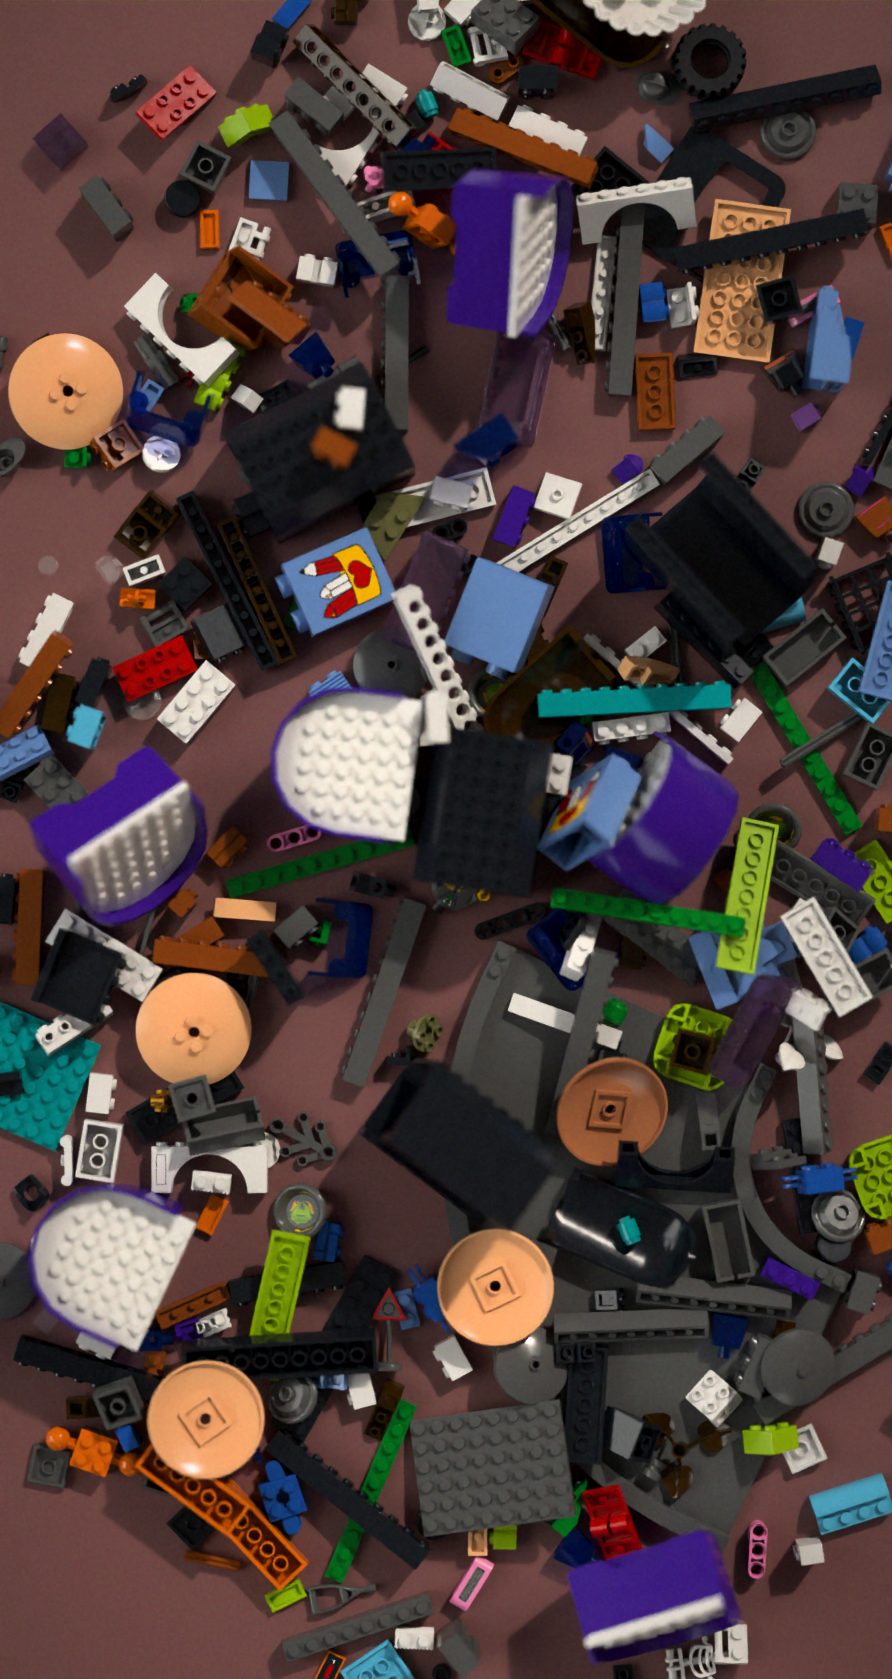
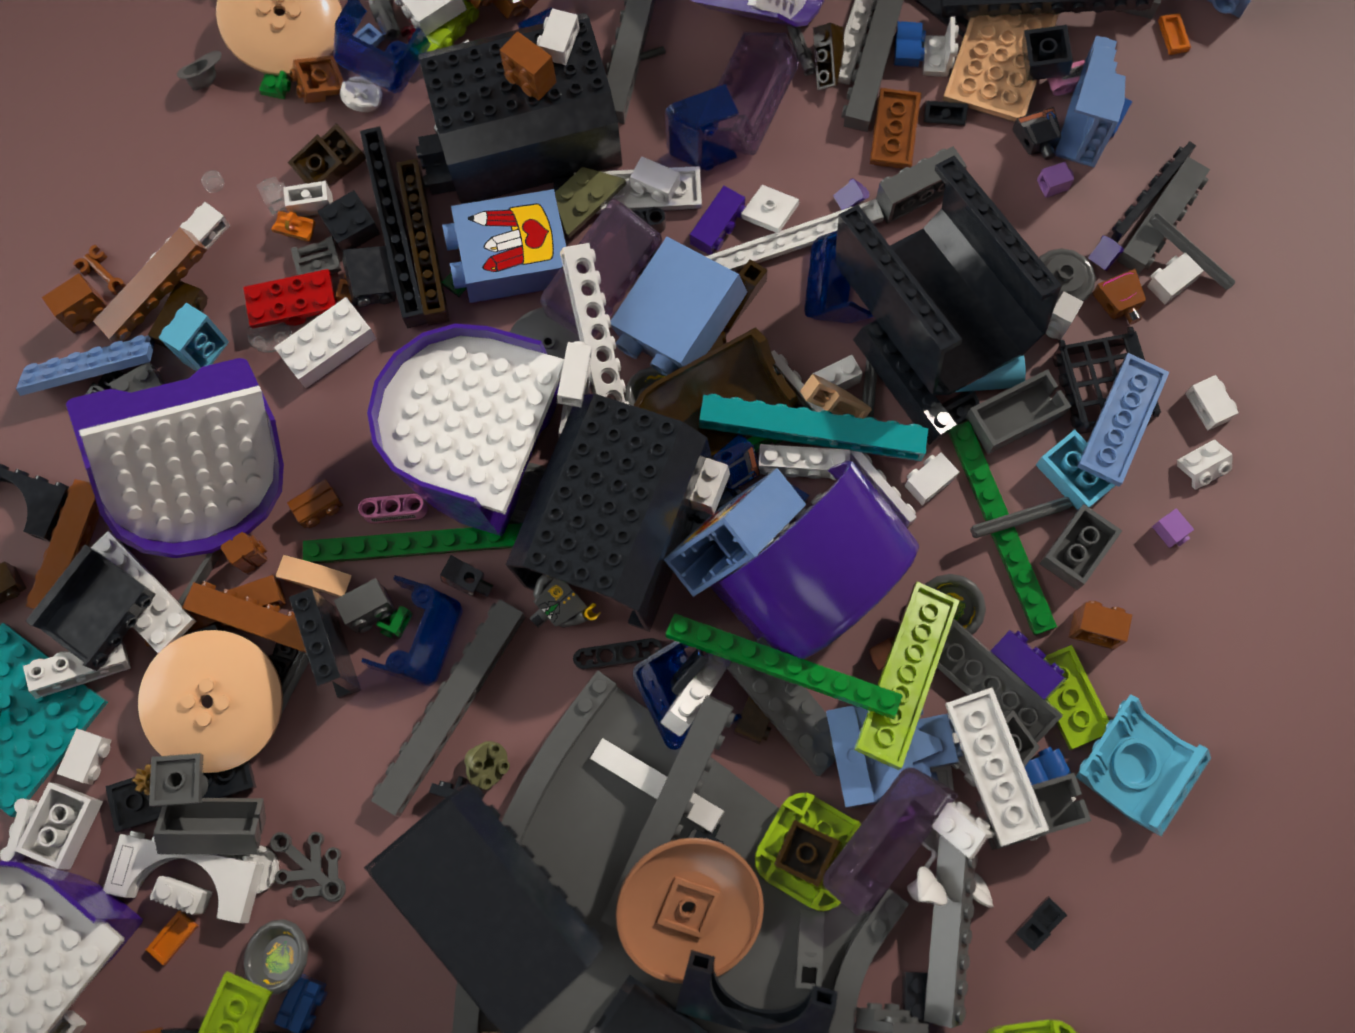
camera: 10 degrees right, 15 degrees down
(94, 682) = (220, 296): black brick -> none
(614, 1012) = (718, 786): green head -> none

